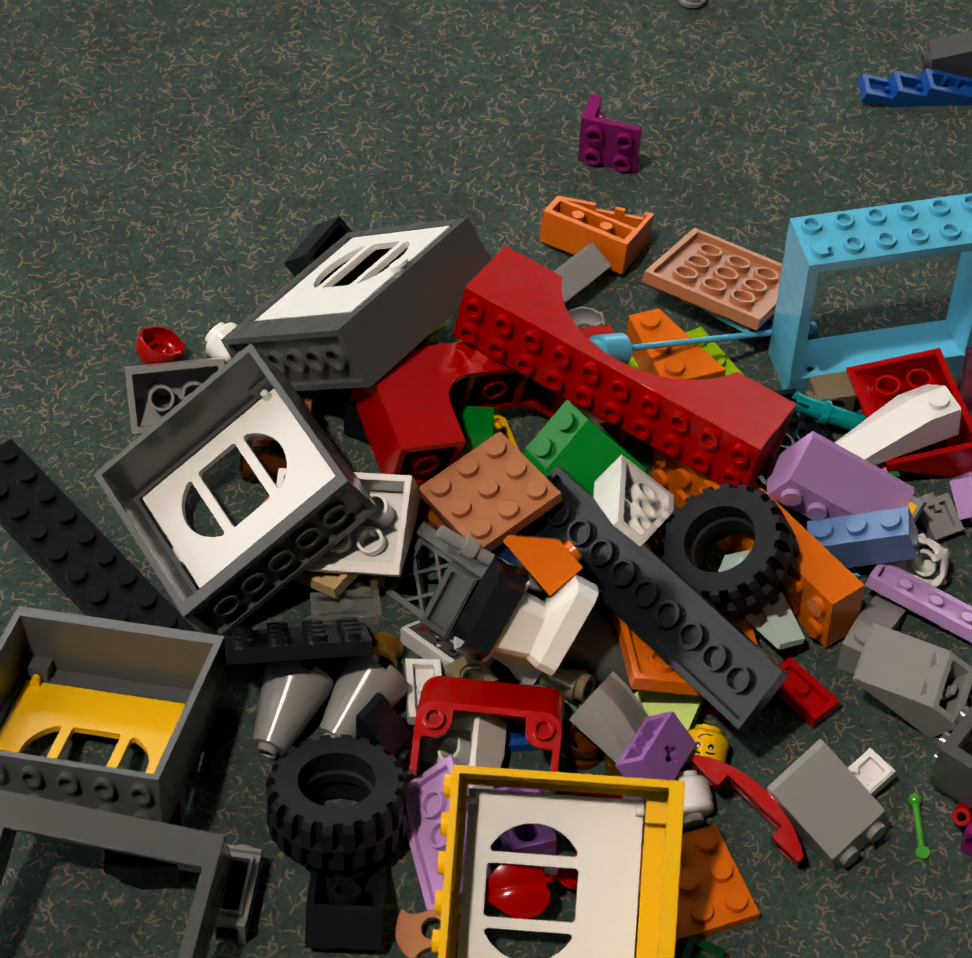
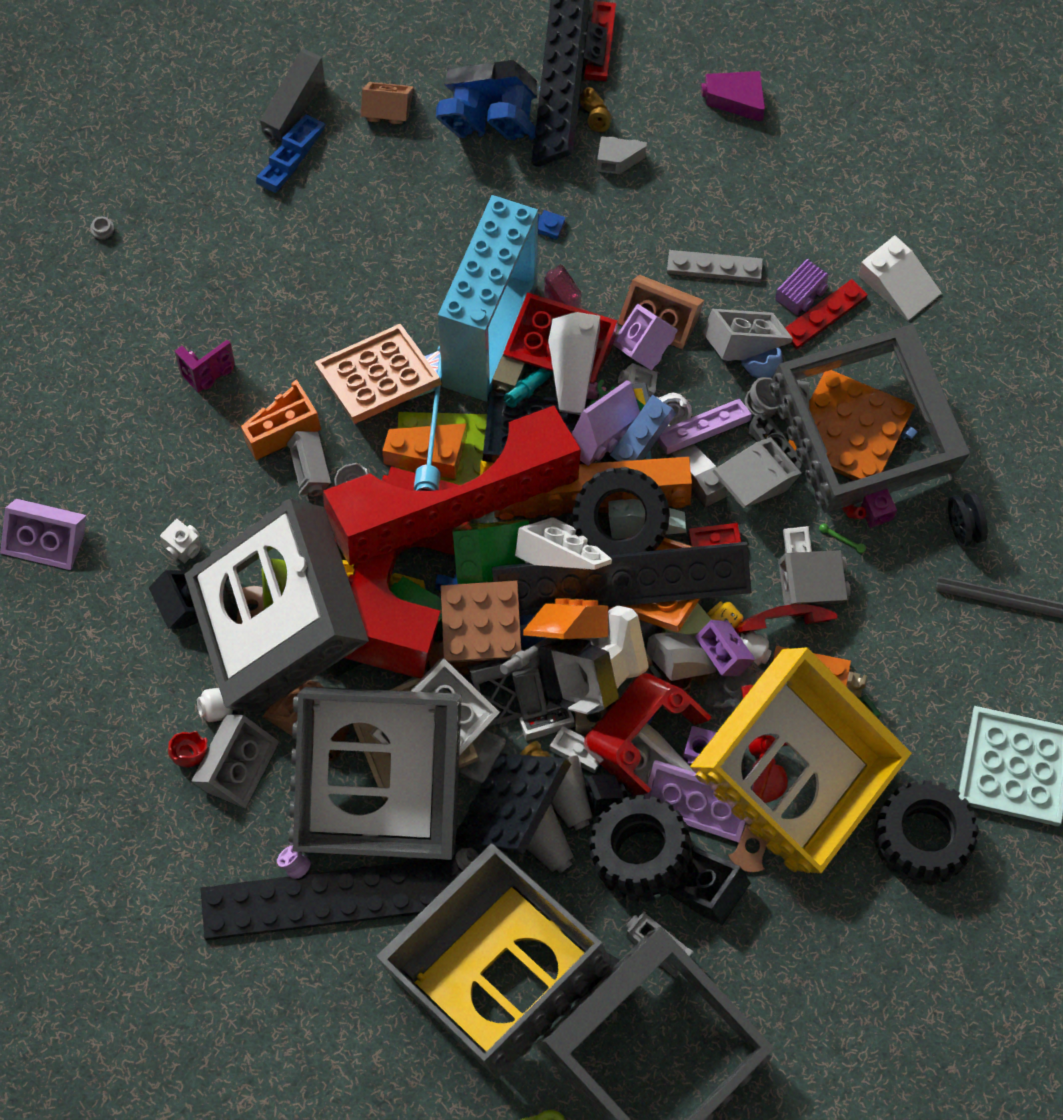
camera: 55 degrees left, 15 degrees up
(92, 500) = (293, 862): none -> lavender wheel
(312, 118) = (42, 533): none -> lavender slope
(390, 214) = (181, 541): none -> white brick
(724, 928) = (856, 684): none -> dark tan plate

